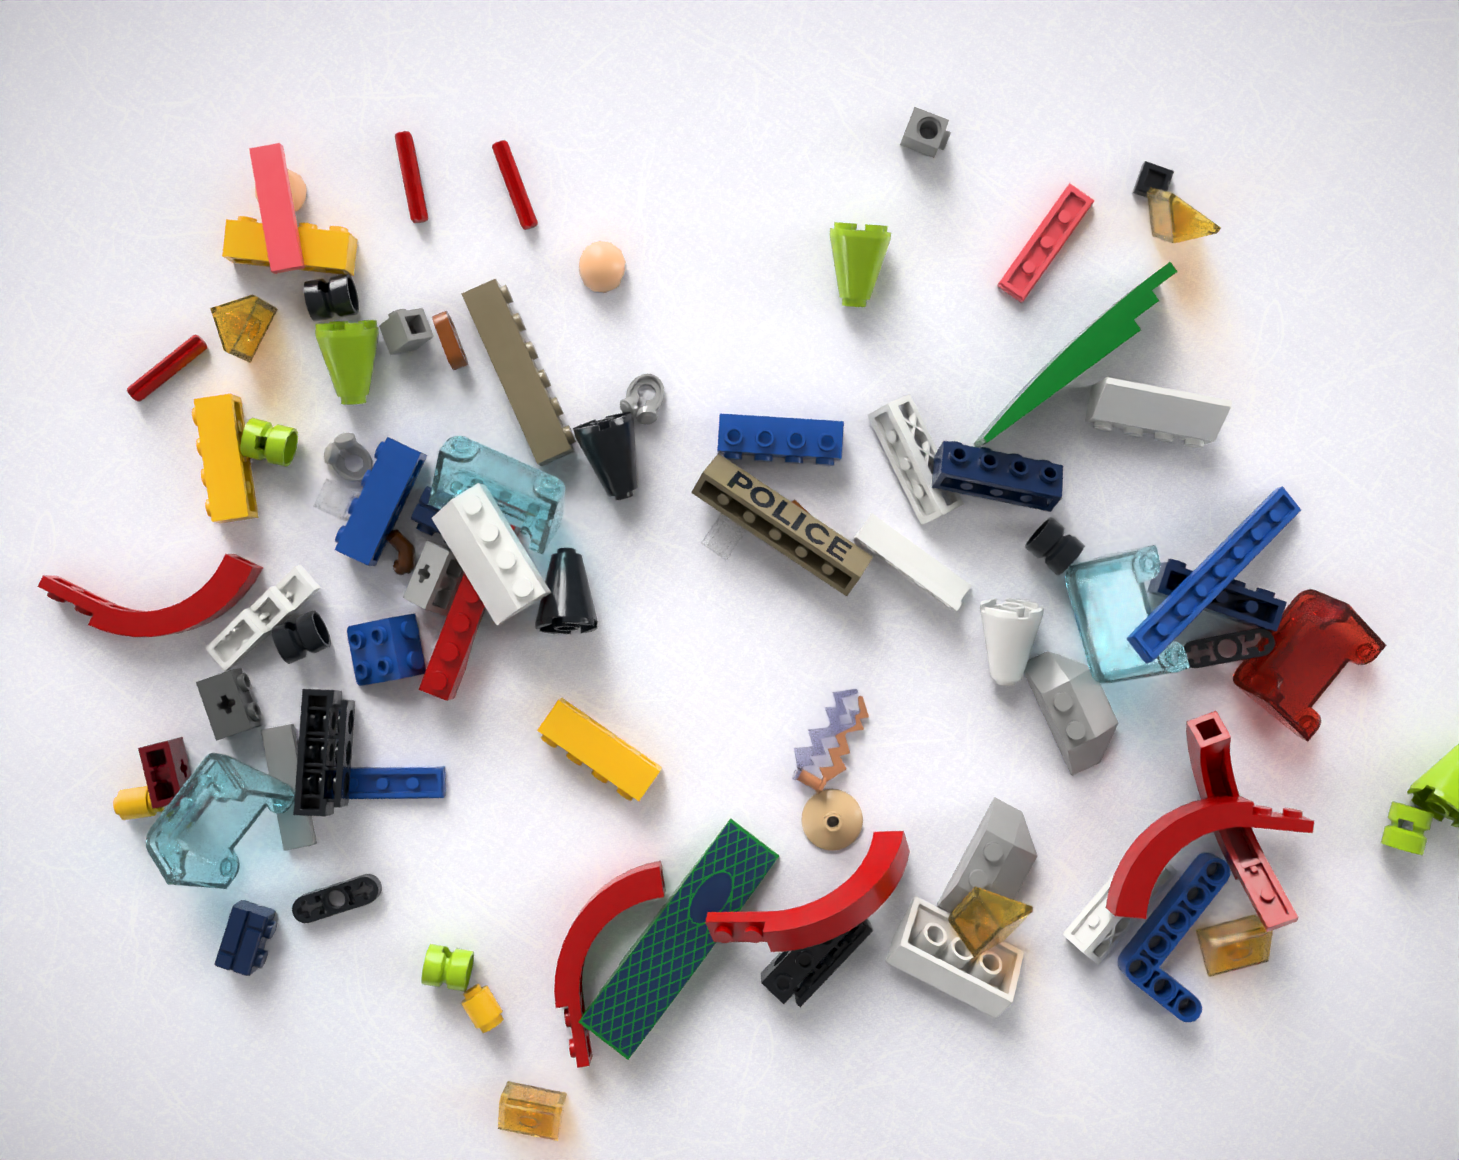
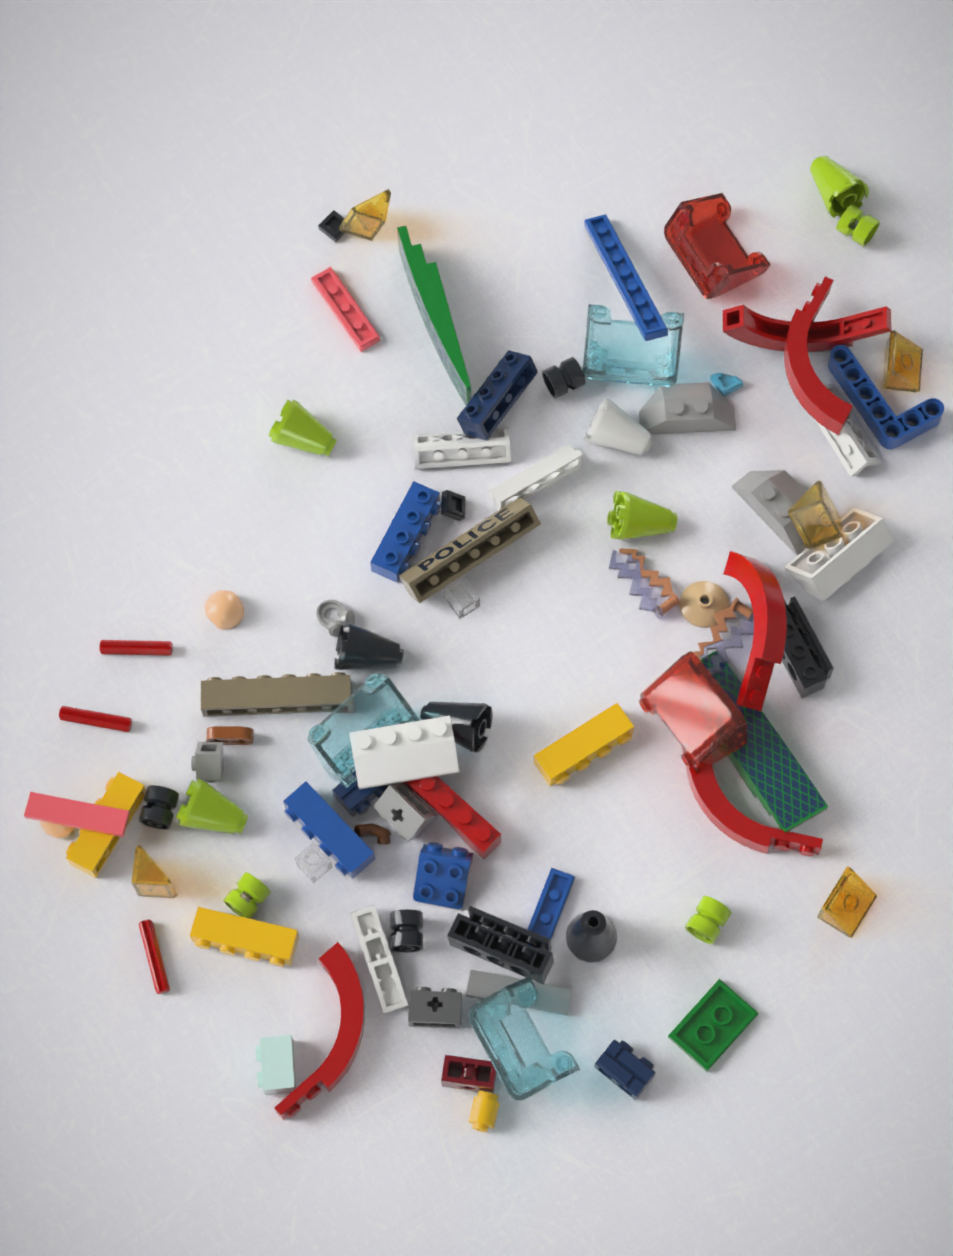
camera: 65 degrees left, 20 degrees down
(99, 556) = (277, 1064): none -> light aqua brick
(319, 913) = (627, 1008): black beam -> none
(337, 1012) = (713, 1025): none -> green tile
(348, 442) = (277, 856): light grey piece -> none
(383, 842) = (591, 936): none -> black cone
(482, 1008) = (750, 908): yellow brick -> none
(678, 867) = (696, 712): none -> clear red windscreen
(784, 861) = (720, 645): none -> piece
(836, 479) = (453, 505): none -> black tile
(904, 706) = (638, 517): none -> lime cone
(922, 119) = (232, 365): light grey brick -> none
(1127, 741) = (726, 383): none -> medium azure tile
(1156, 411) = (496, 278): white slope -> none
(1234, 602) = (655, 275): dark blue brick -> none
(1249, 636) = (692, 277): black beam -> none

